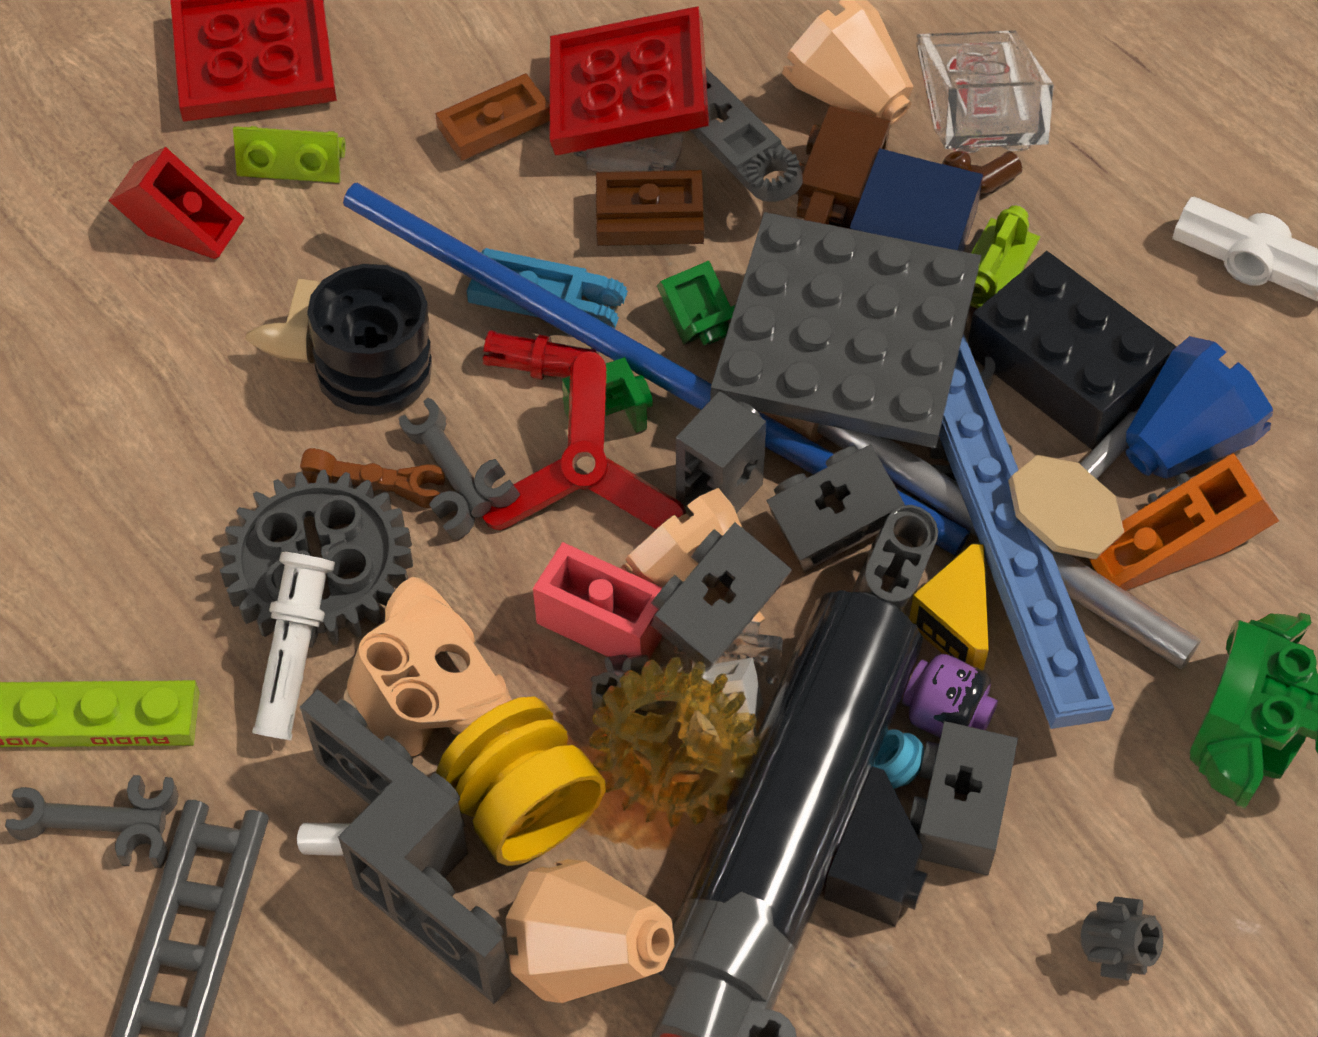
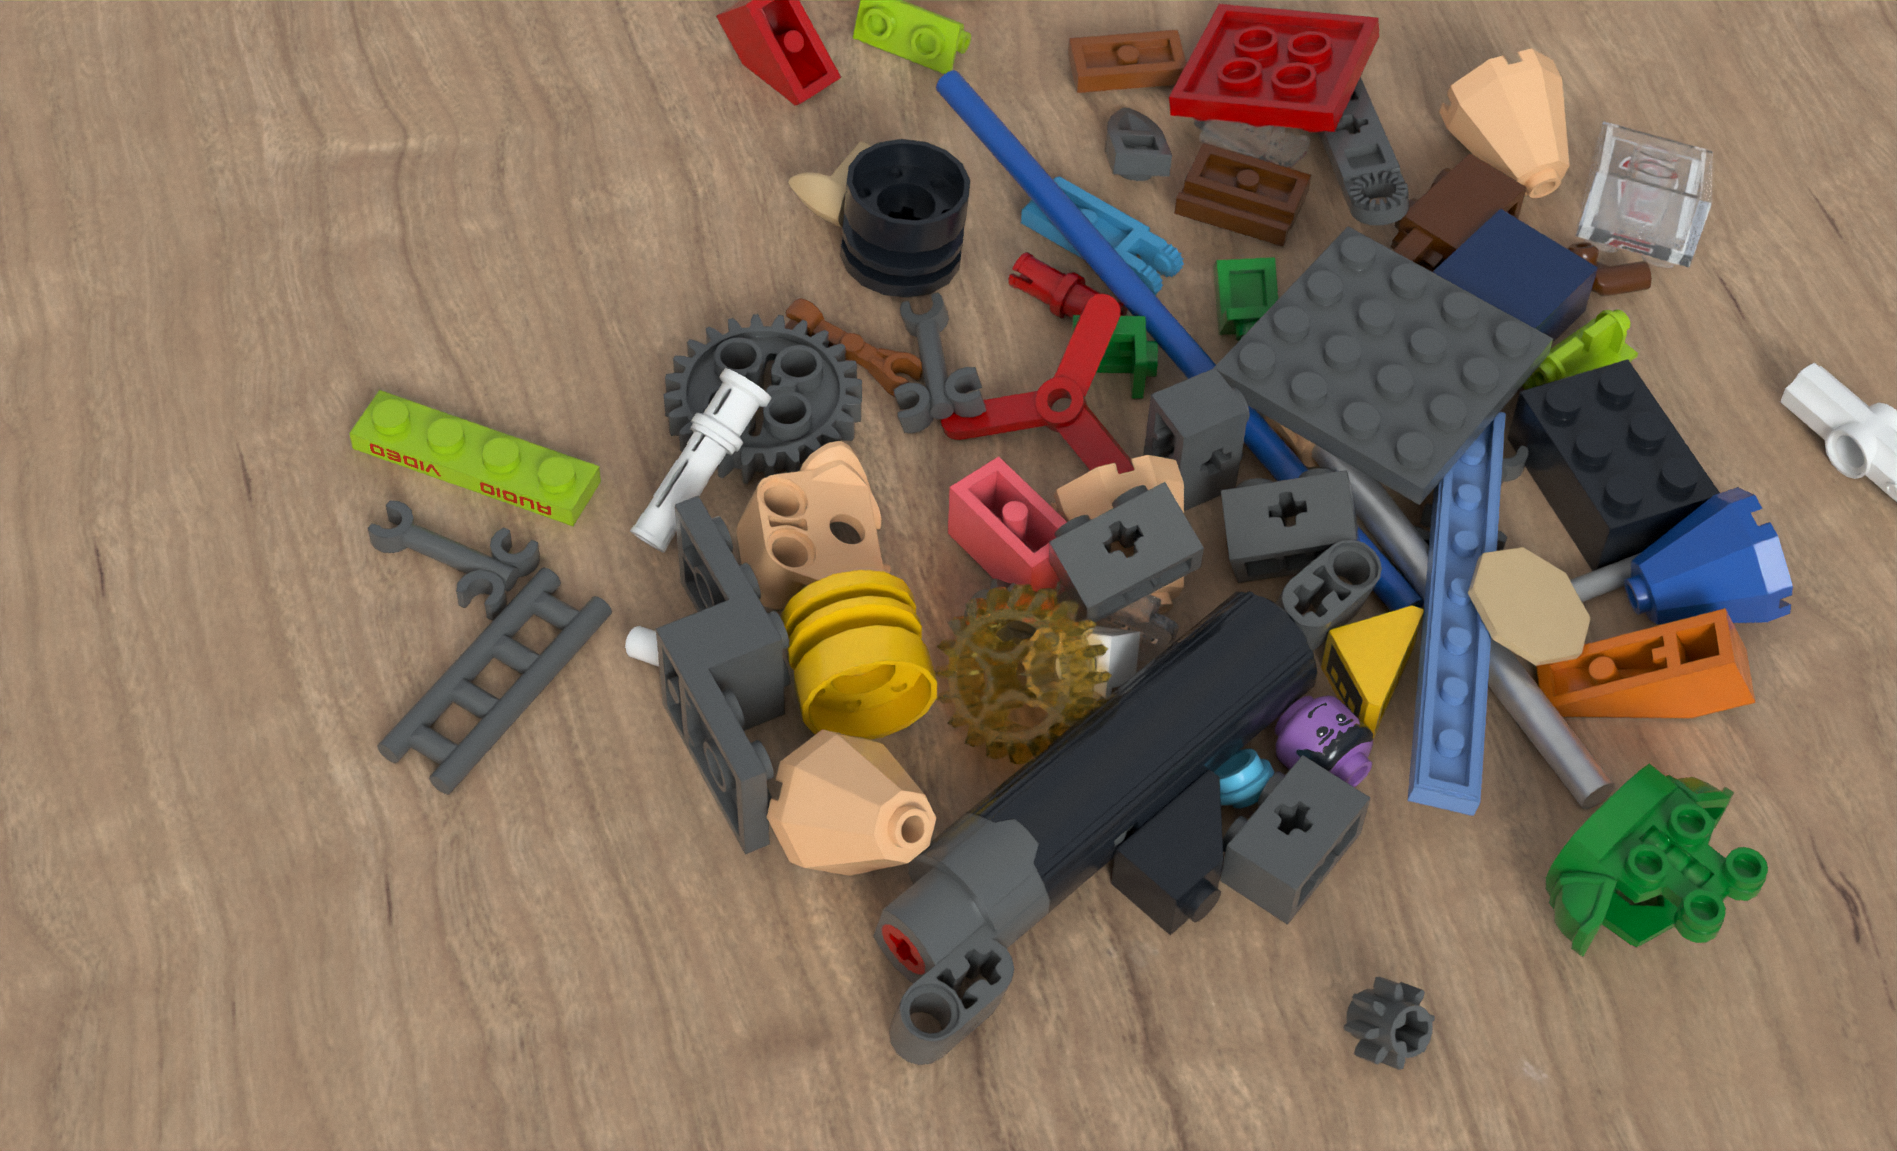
camera: 20 degrees right, 5 degrees down
(538, 194) = (1136, 146): none -> dark grey plate

